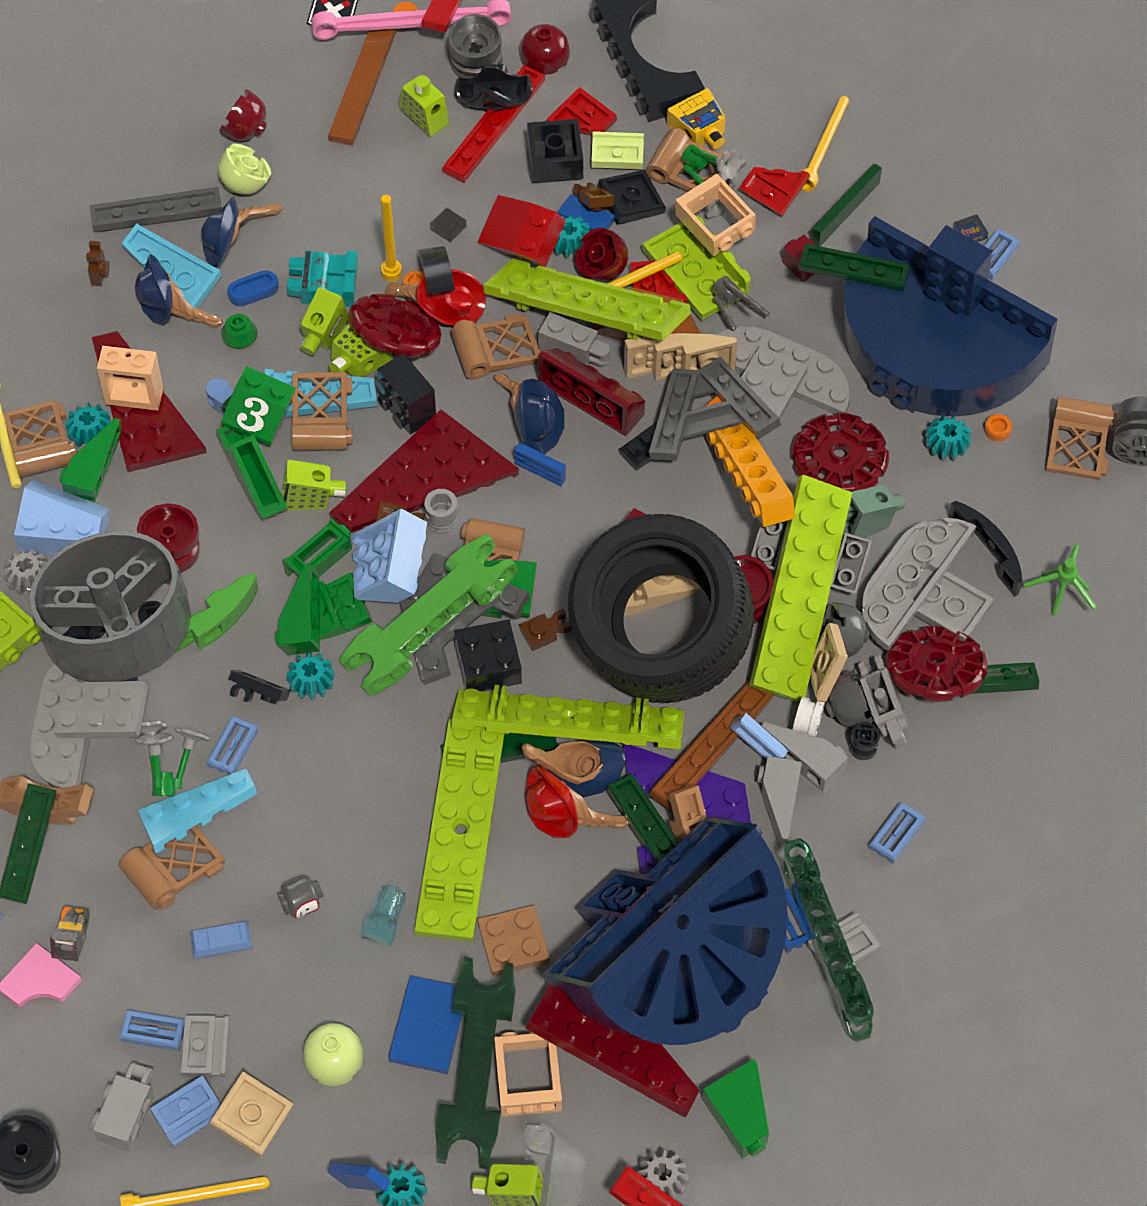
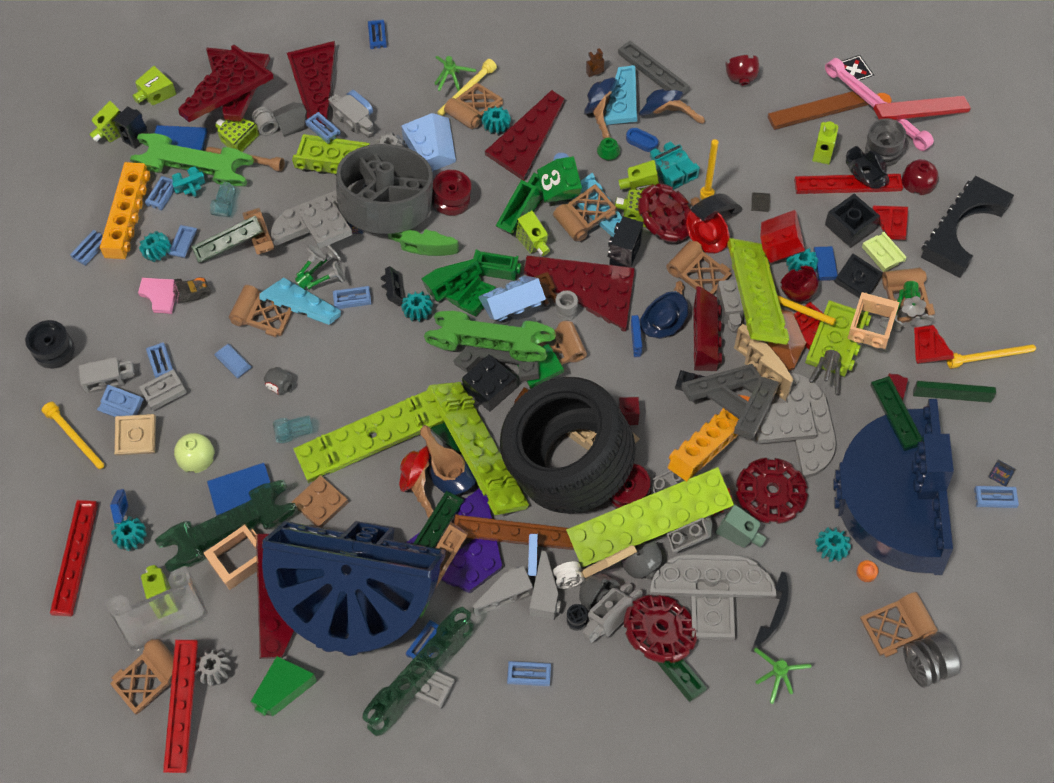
camera: 60 degrees right, 0 degrees up
(89, 465) = (469, 134): green slope -> none
(128, 391) = (528, 113): light nougat window -> none
(242, 171) = (708, 87): yellowish green cylinder -> none
(593, 197) = (838, 257): reddish brown plate -> none
(699, 119) = (942, 279): yellow torso -> none

